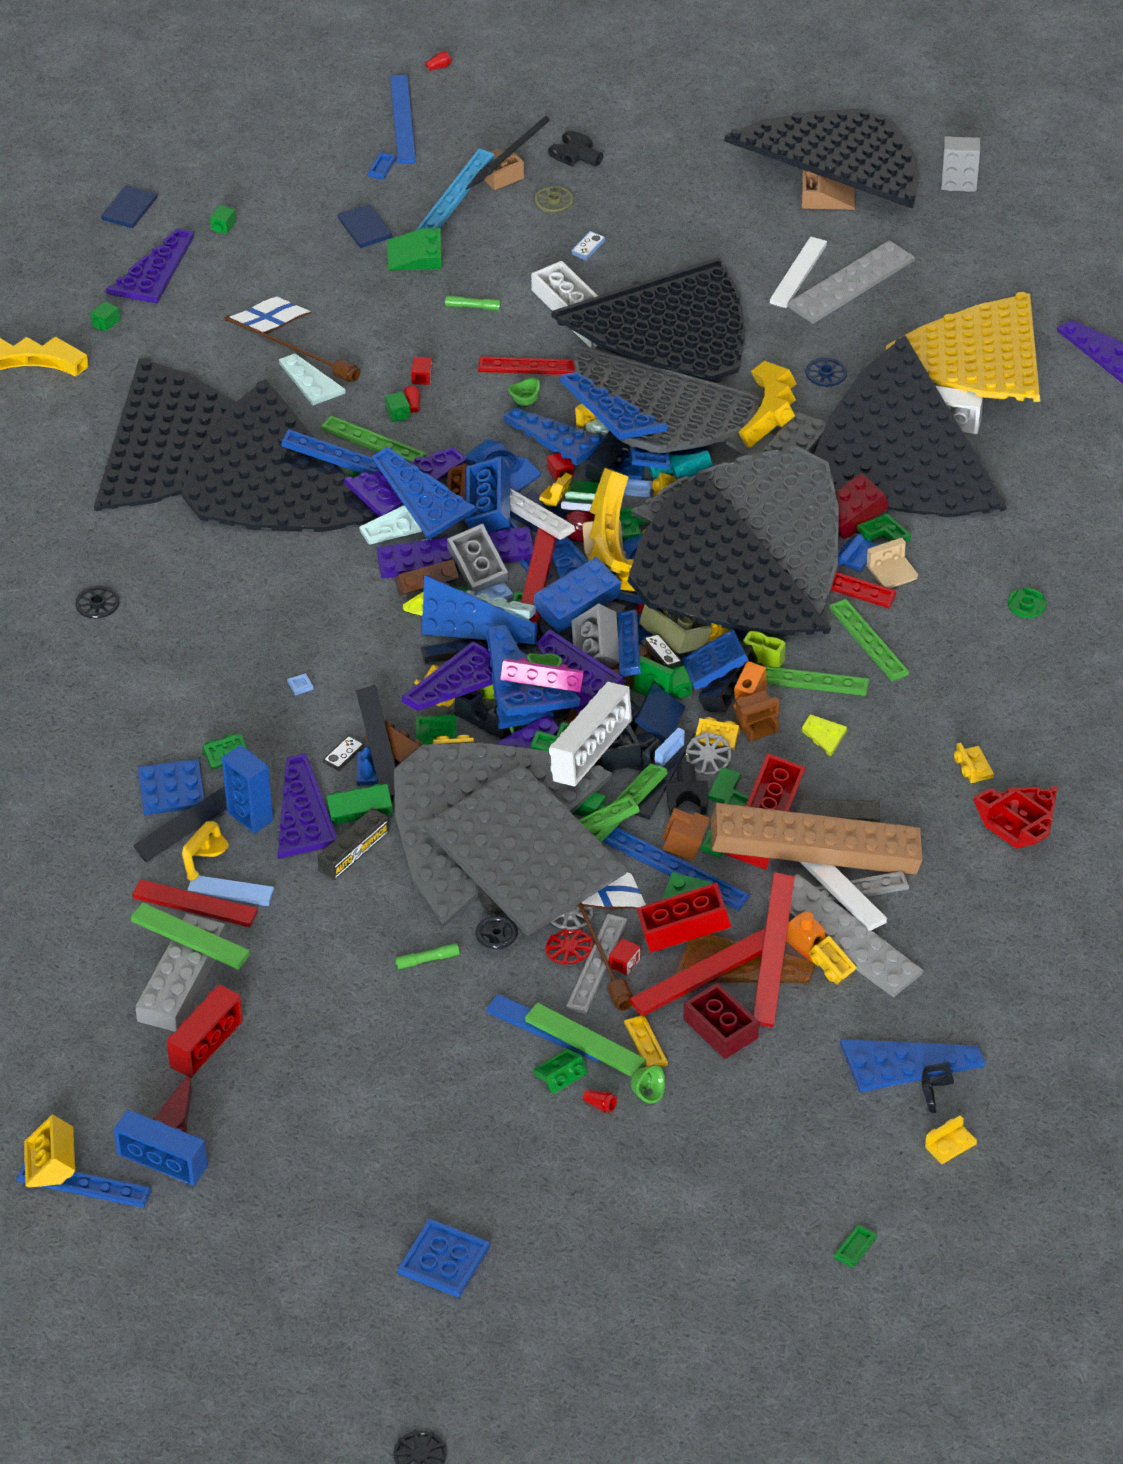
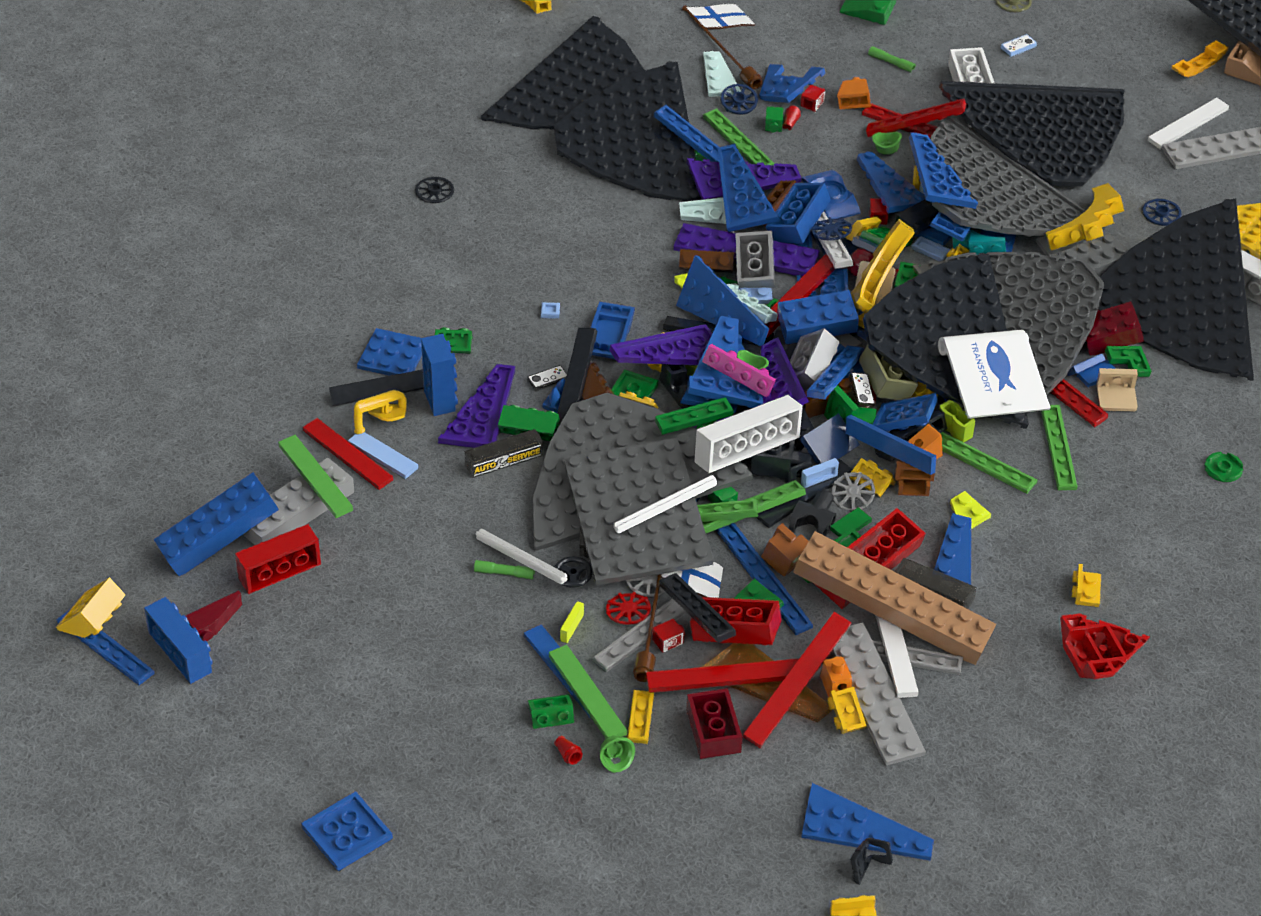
camera: 25 degrees right, 0 degrees up
(123, 1021) = (216, 524): none -> blue brick
(347, 397) = (739, 99): none -> dark blue wheel
(375, 670) = (613, 326): none -> blue slope
(387, 370) = (786, 88): none -> blue wing
(438, 936) = (521, 556): none -> white axle
(462, 352) = (854, 94): none -> orange torso
(525, 736) = (693, 415): none -> green plate
(526, 980) = (572, 622): none -> neon yellow tile
(531, 501) = (831, 229): none -> dark blue wheel
(543, 357) = (917, 117): none -> red plate
(552, 832) = (665, 503): none -> white axle
(642, 918) = (697, 608): none -> black tile
(725, 694) = (891, 444): none -> blue tile
(775, 202) = (1211, 55): none -> light orange slope
(778, 588) = (995, 373): none -> white door
(836, 773) = (956, 549): none -> blue wing

